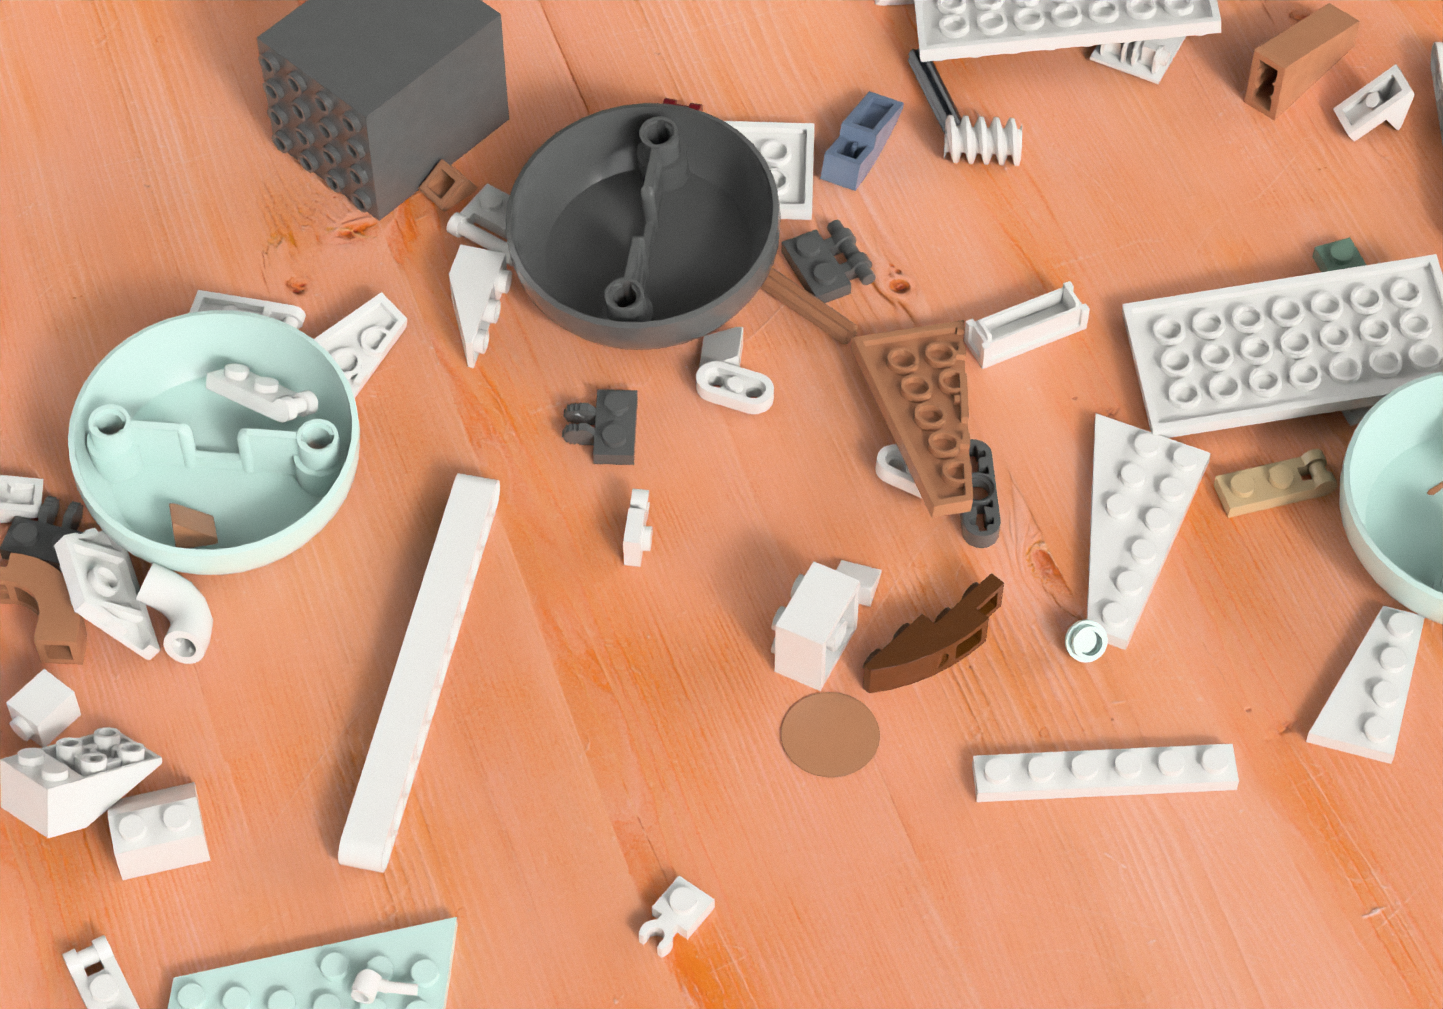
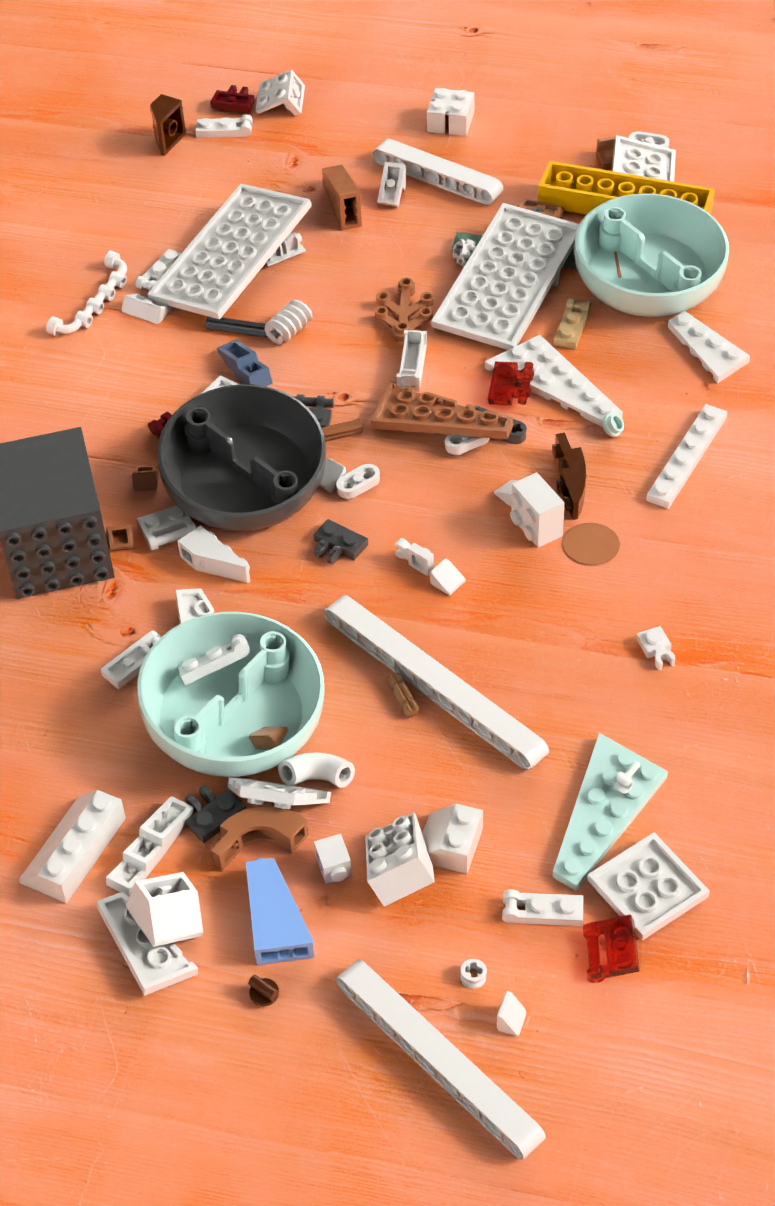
camera: 55 degrees left, 5 degrees down
(377, 645) = (403, 695): none -> medium nougat axle
(627, 586) = (446, 577): none -> white slope
(1068, 459) = (503, 383): none -> clear red plate
(1091, 280) = (406, 289): none -> nougat plant
(1307, 262) = (463, 250): none -> white gear

